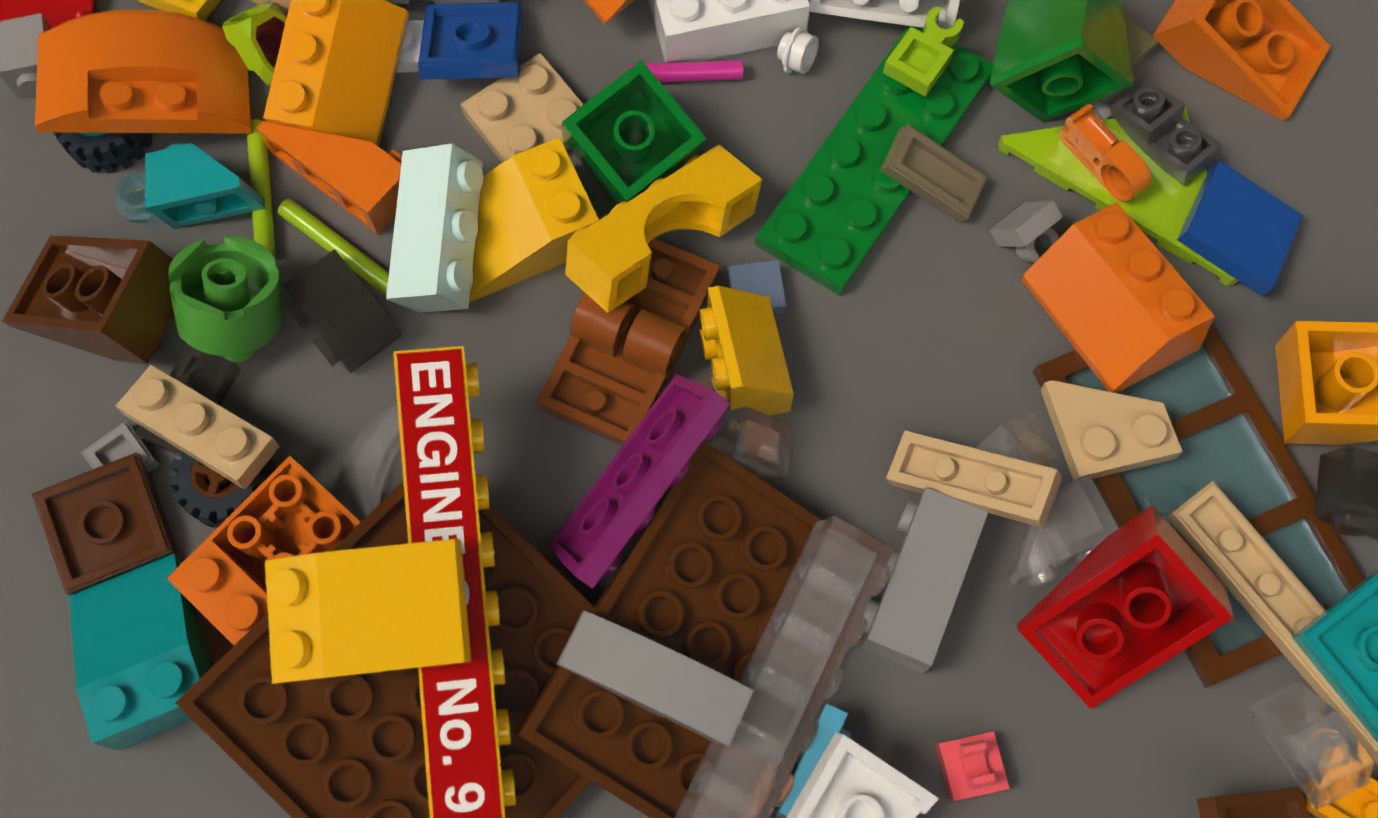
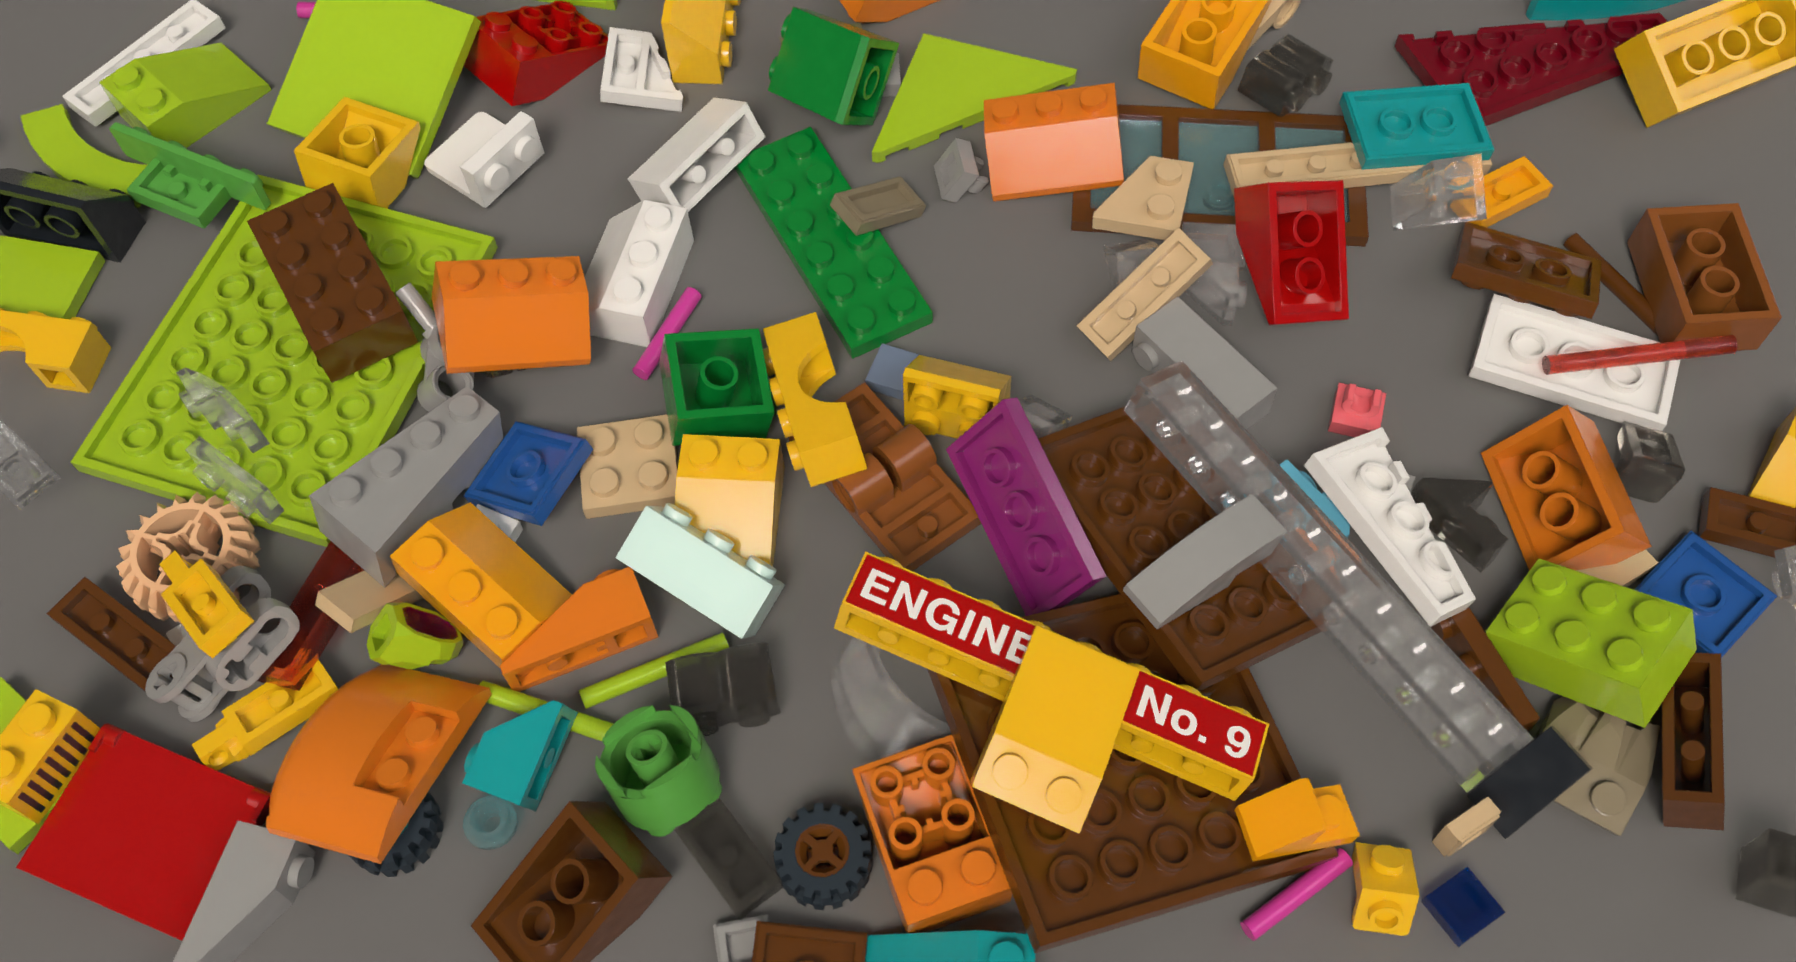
camera: 60 degrees left, 10 degrees down
(198, 426) = (770, 846): tan plate -> none
(798, 50) = (706, 246): white plate -> none
(923, 55) = (778, 160): lime plate -> none
(1105, 156) = (933, 95): orange piece -> none
(1157, 128) = (946, 53): flat silver slope -> none
(1240, 228) = (1041, 48): blue tile -> none

